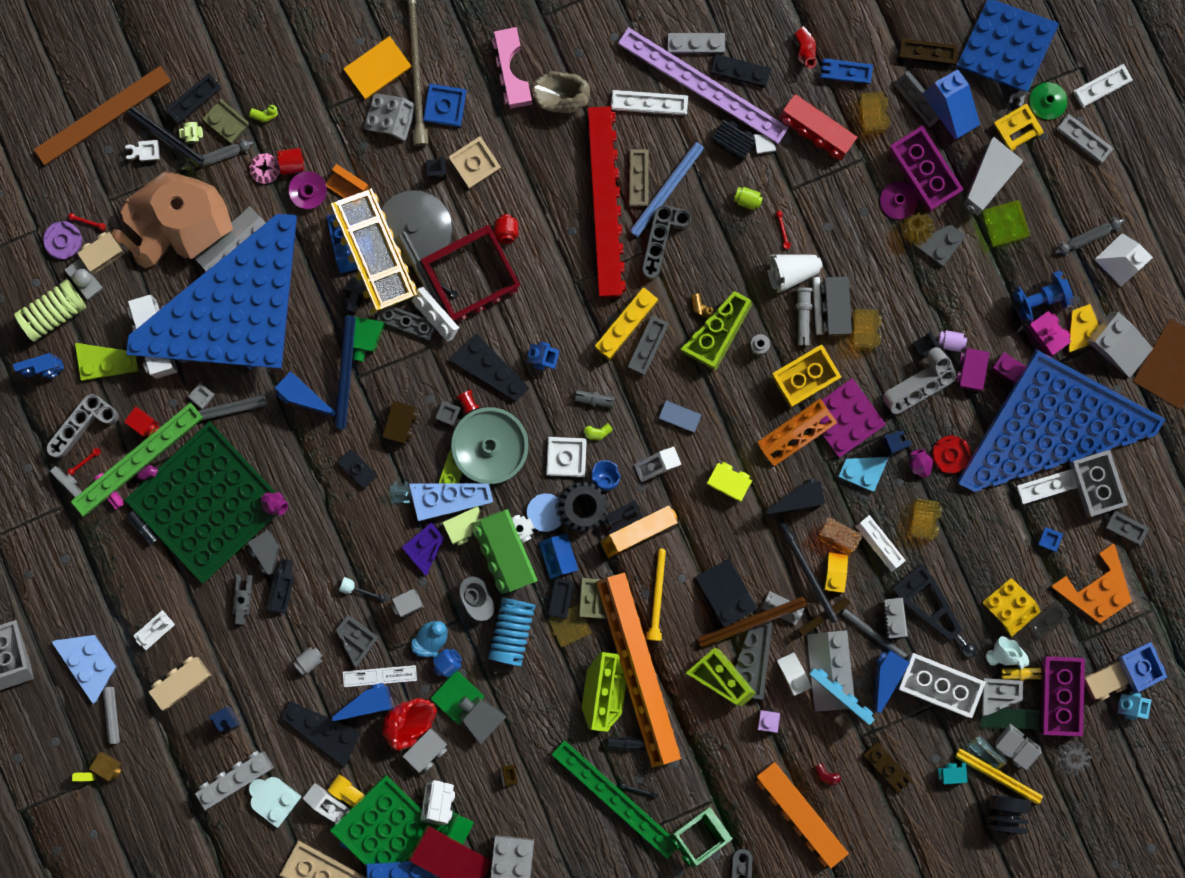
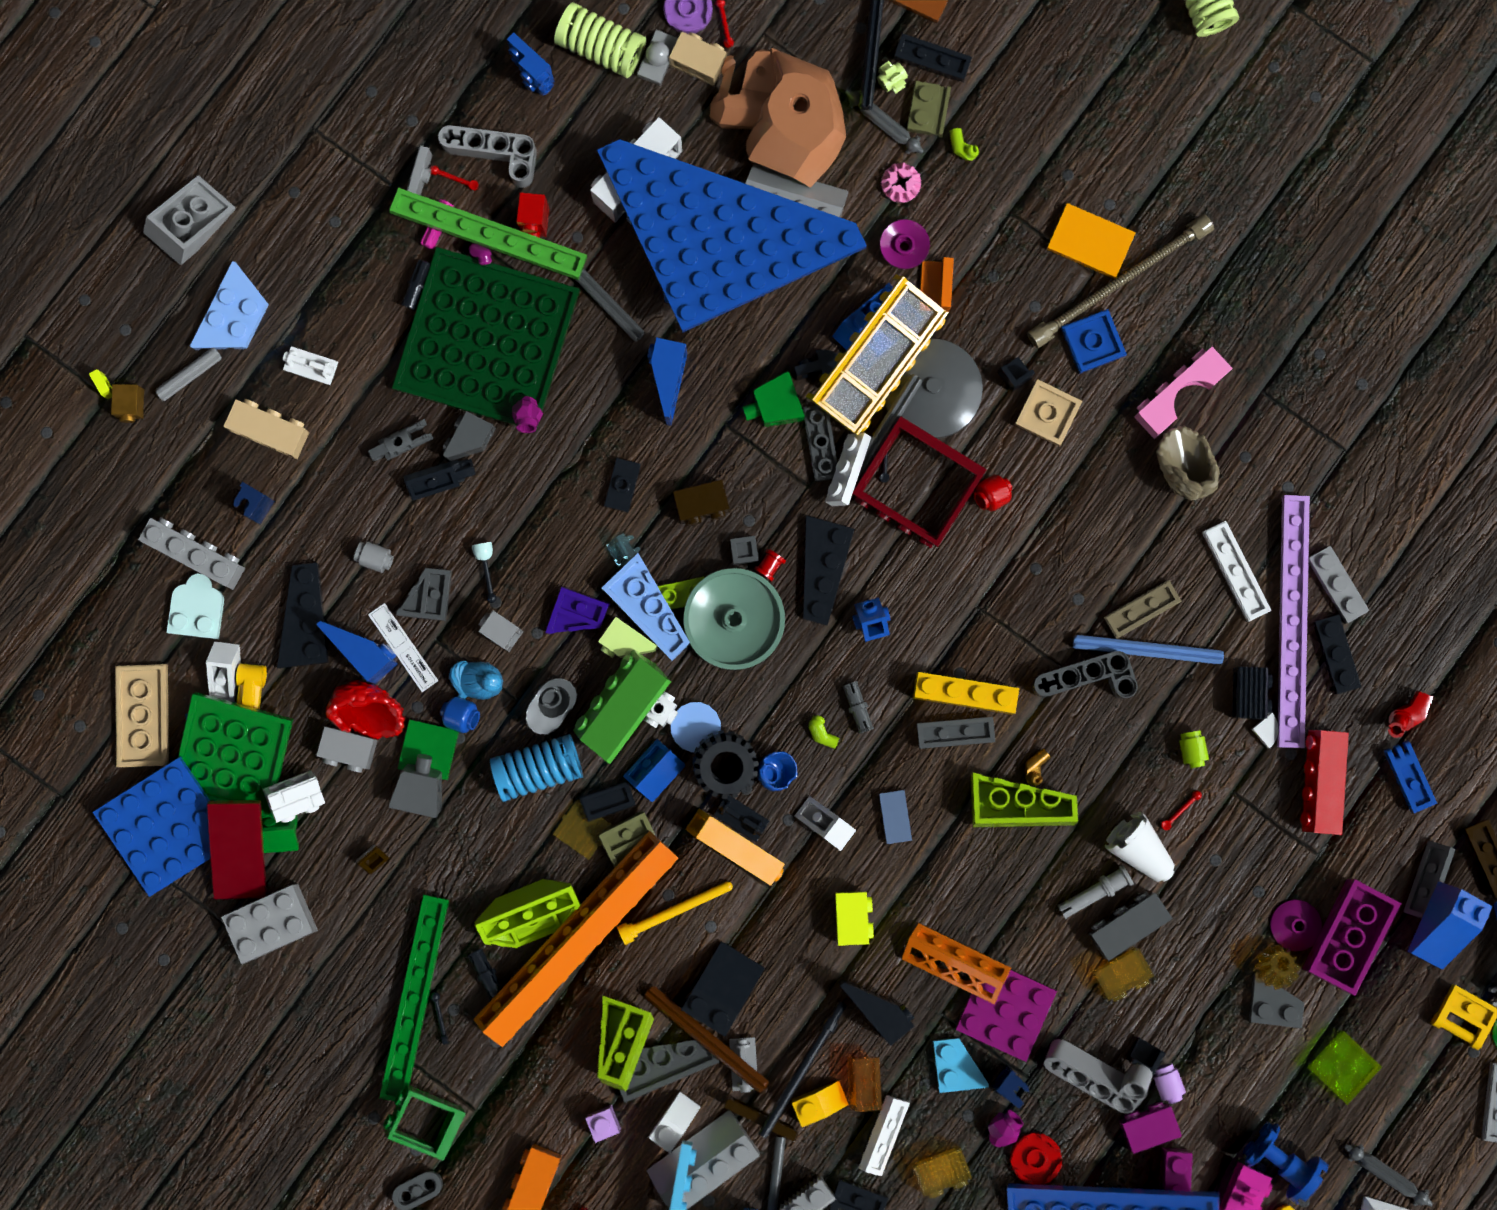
camera: 60 degrees right, 0 degrees up
(103, 362) = (577, 133): lime wing -> none
(146, 151) = (842, 40): white plate -> none
(201, 396) = (603, 263): light grey tile -> none
(291, 161) = (926, 206): red piece -> none
(345, 372) = (722, 406): dark blue axle -> none
(390, 115) = (1045, 286): light grey bracket -> none
(566, 457) = (773, 713): white tile -> none
(605, 203) = (1091, 587): red brick -> none
(759, 350) = (1023, 861): light grey brick -> none
(806, 376) = (1027, 936): yellow brick -> none
(817, 306) = (1117, 902): white bar -> none
(873, 113) = (1381, 837): clear yellow brick -> none
(992, 173) = (1395, 1018): light grey slope -> none

